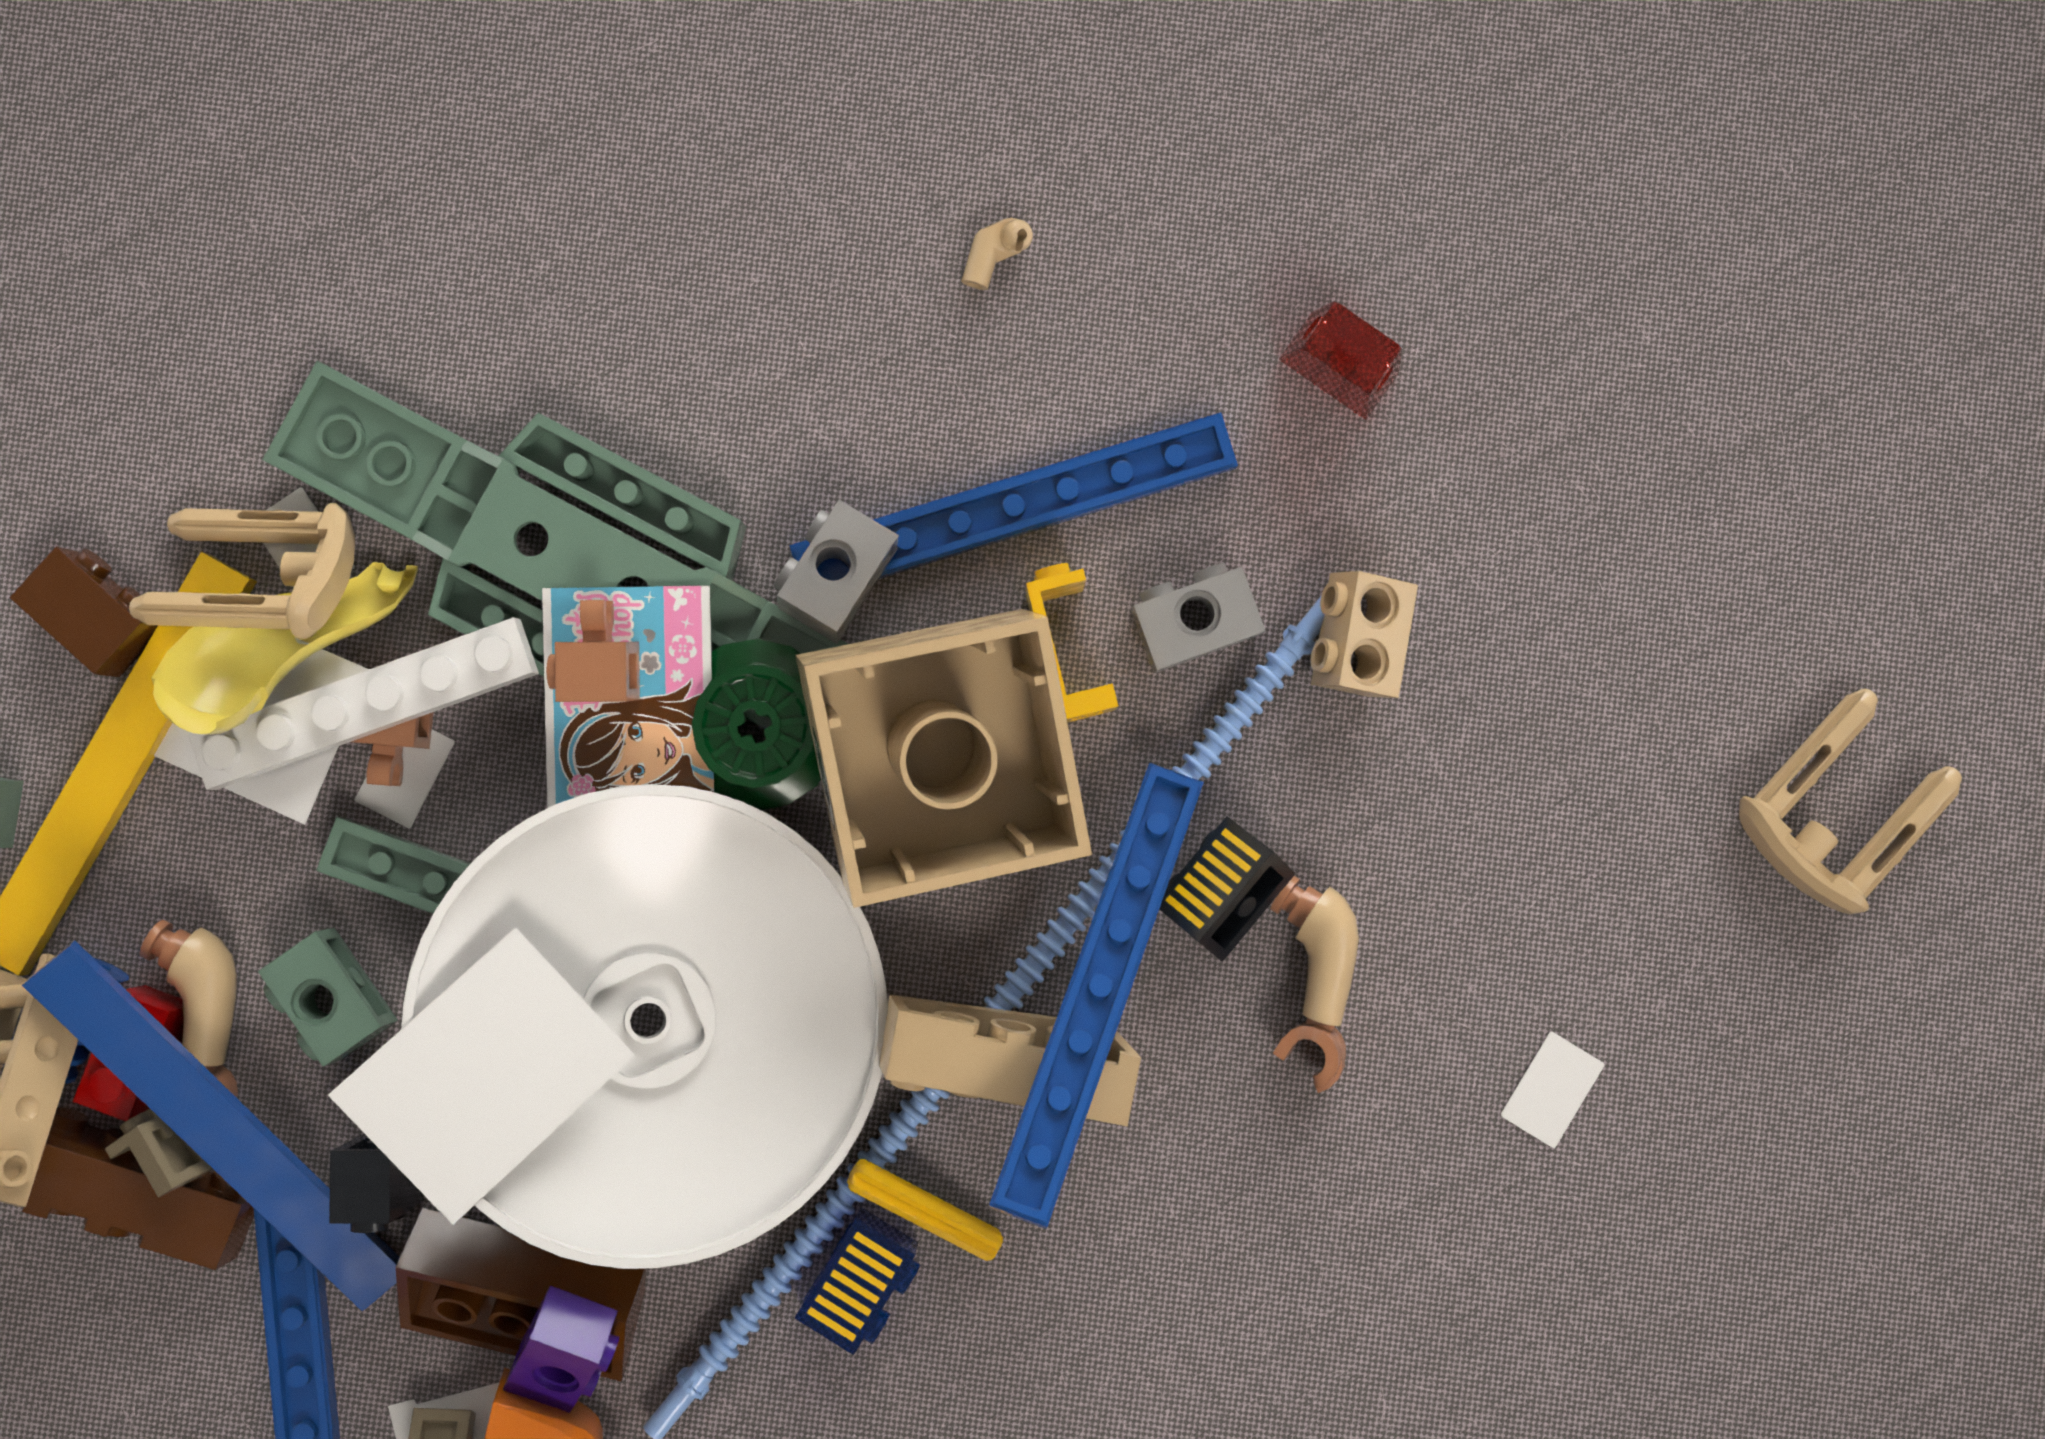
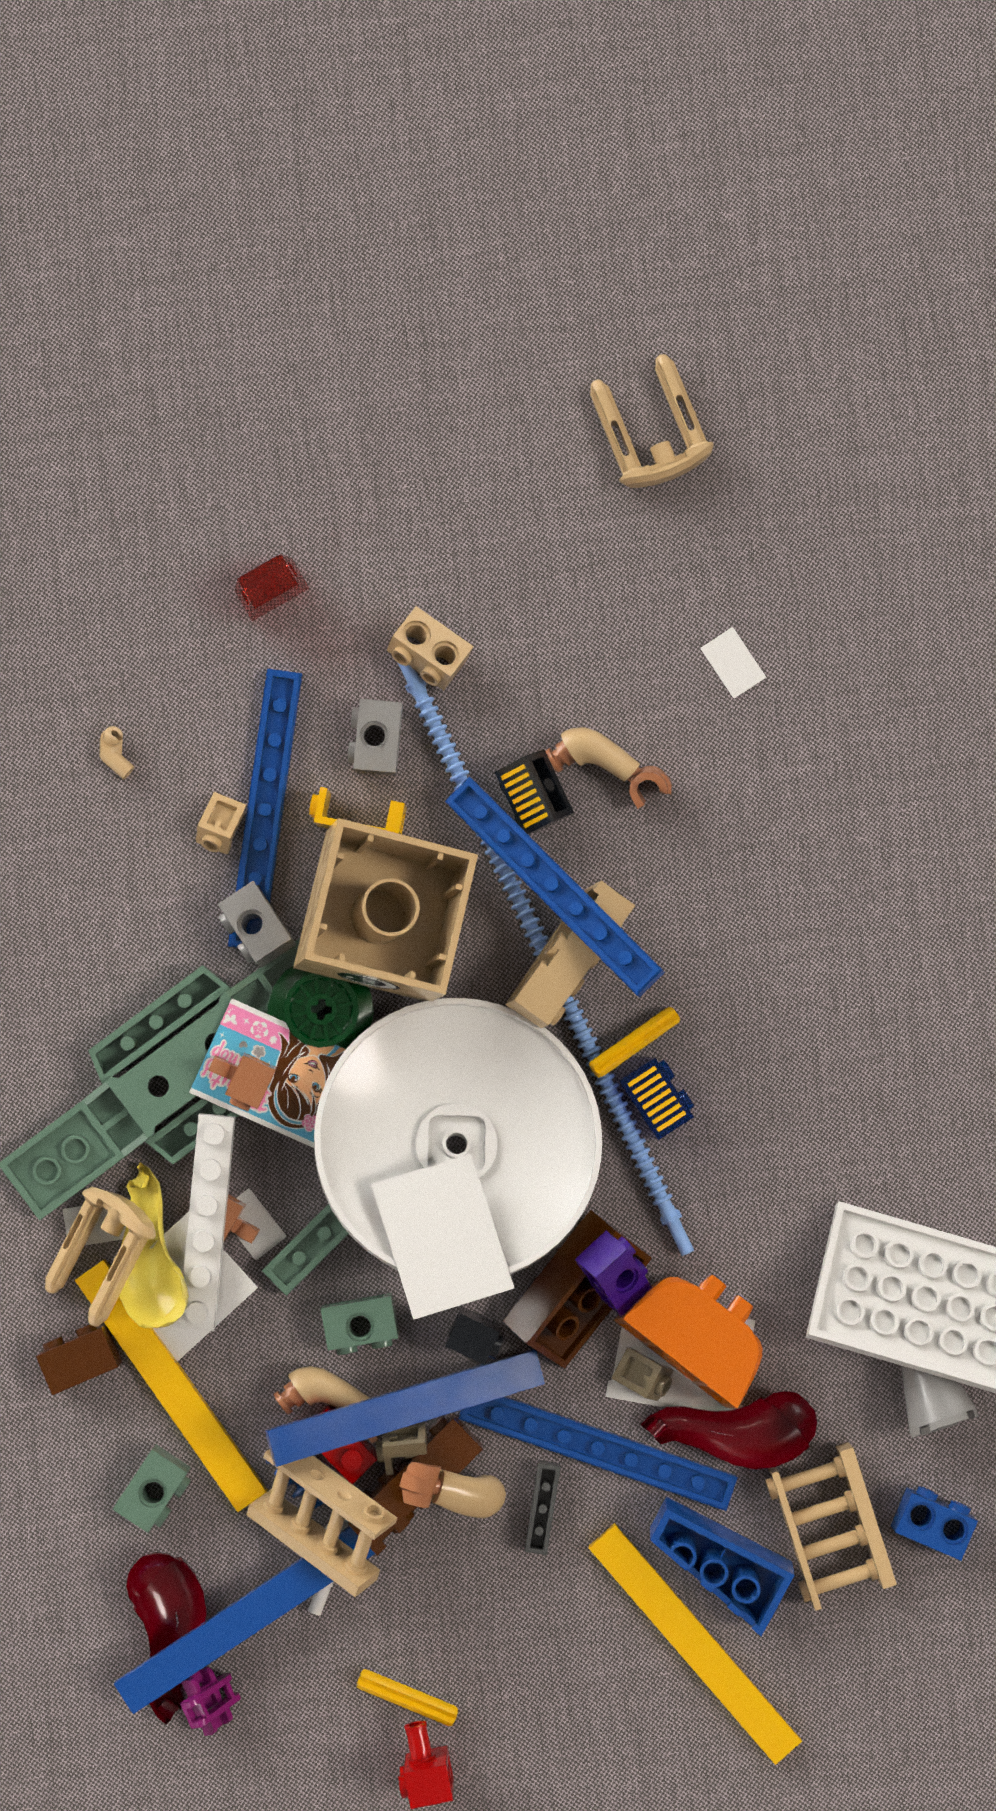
camera: 70 degrees left, 0 degrees up
(122, 1261) = (455, 1492): none -> tan piece
(179, 1392) = (542, 1507): none -> dark grey piece
(962, 449) = (219, 823): none -> tan bracket

